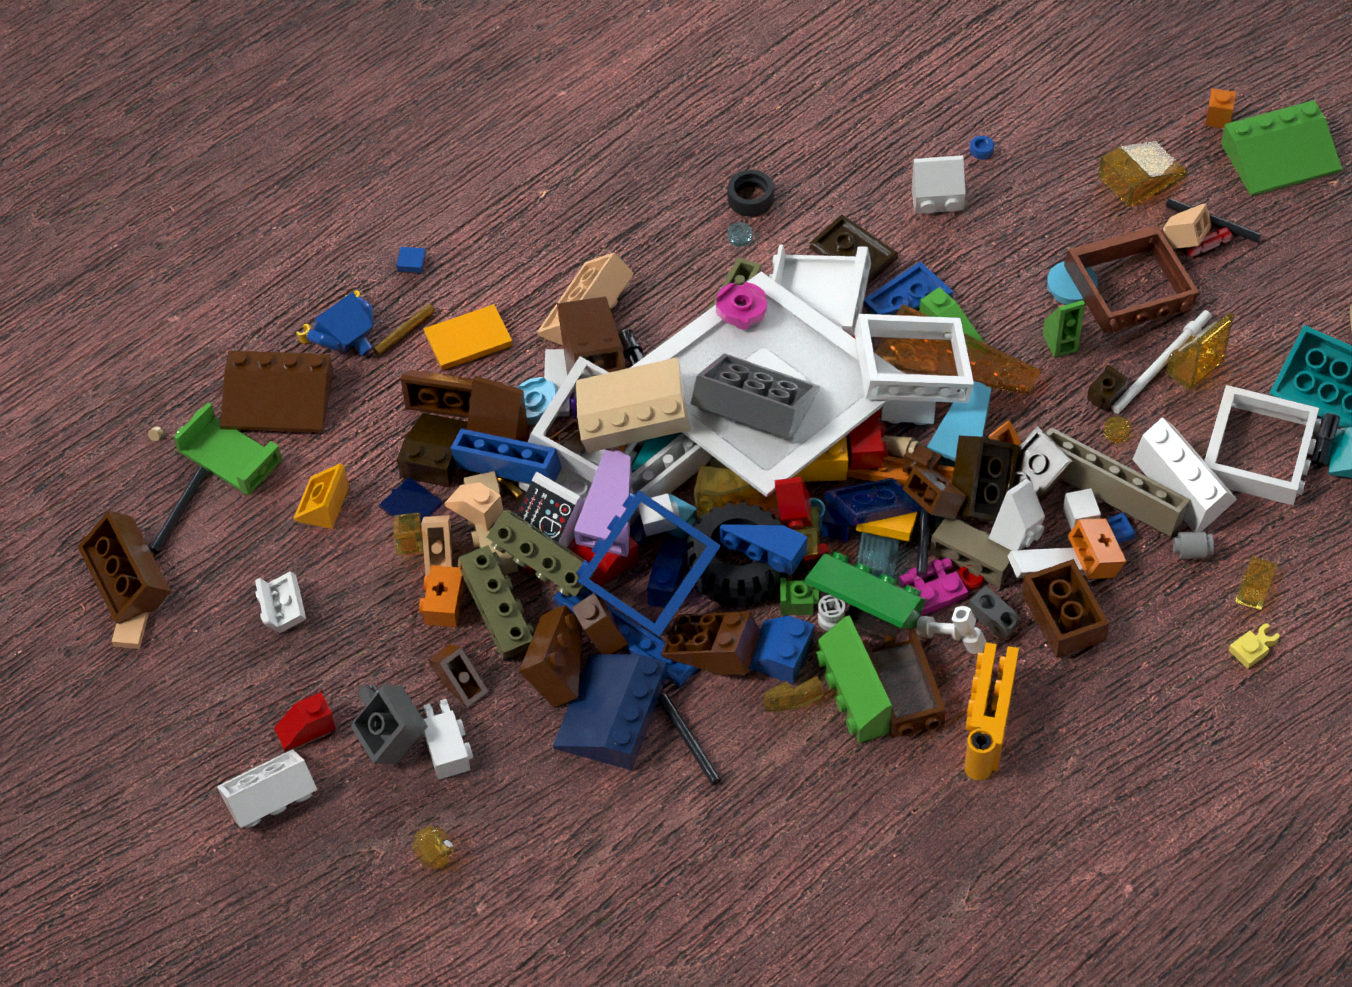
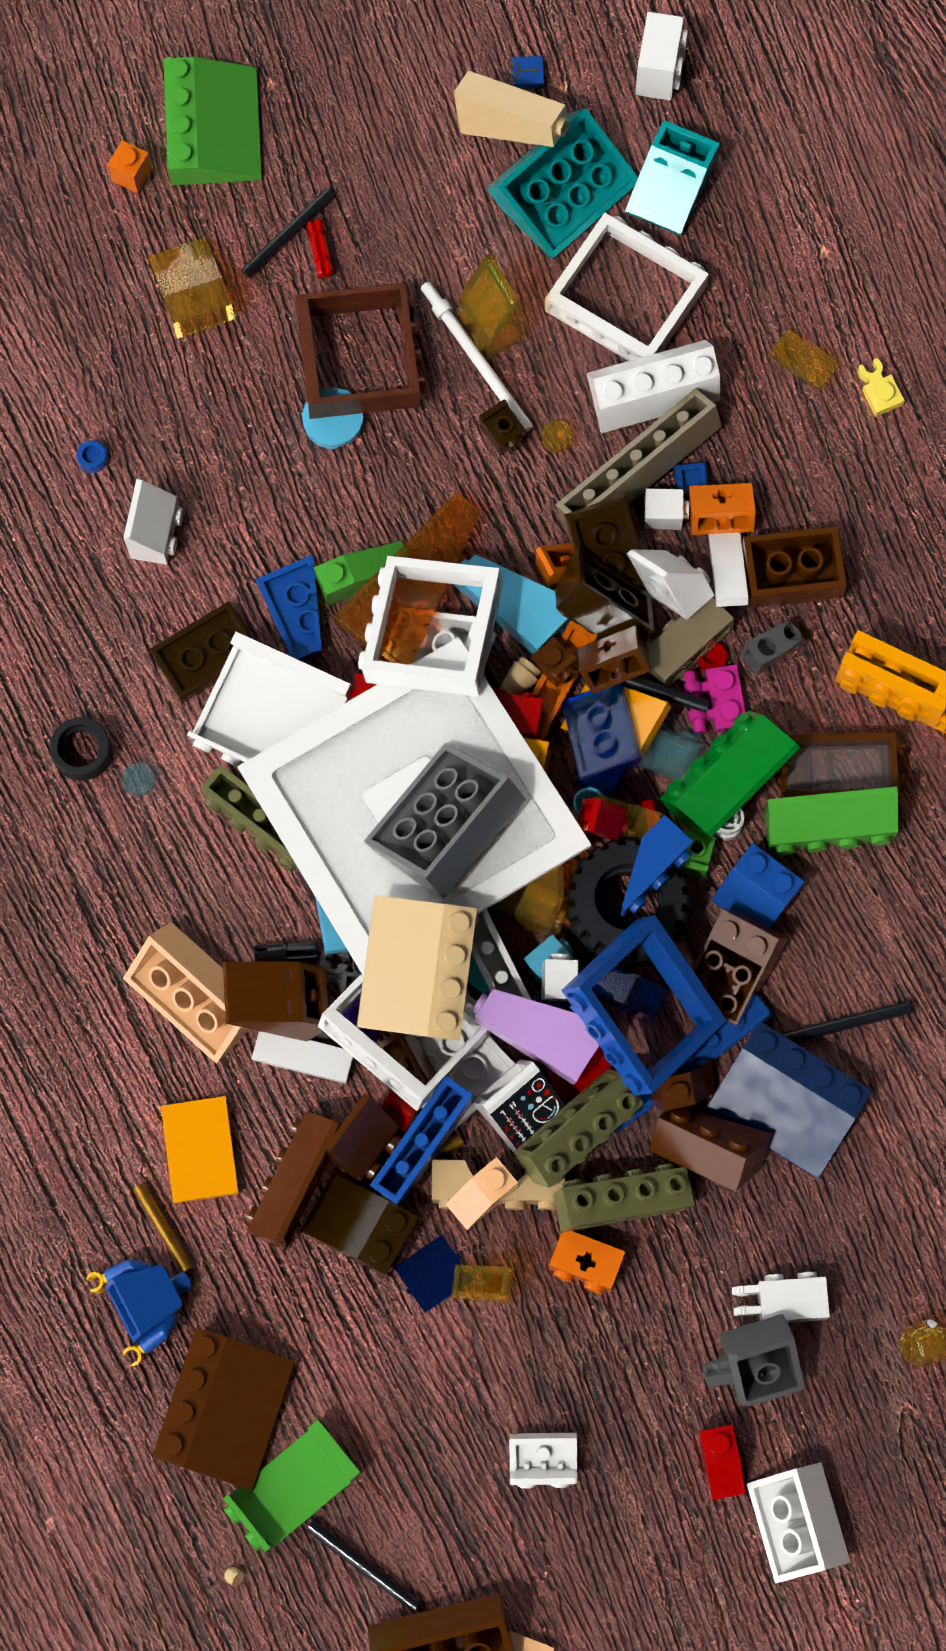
camera: 75 degrees left, 20 degrees up
(323, 497) = (399, 1382): light orange slope -> none
(411, 259) = (52, 1195): blue tile -> none
(437, 541) = (509, 1249): light nougat slope -> none
(458, 674) = (700, 1266): reddish brown slope -> none
(537, 396) = (329, 1087): medium azure tile -> none
(738, 315) = (295, 783): dark pink plate -> none
(786, 698) = (825, 901): clear yellow slope -> none
(962, 628) = (797, 678): white bar -> none
(1063, 328) = (411, 446): bright green slope -> none
(1188, 227) = (301, 264): light nougat slope -> none
(1193, 545) = (740, 406): light grey brick -> none
(1326, 439) = (642, 219): black axle -> none

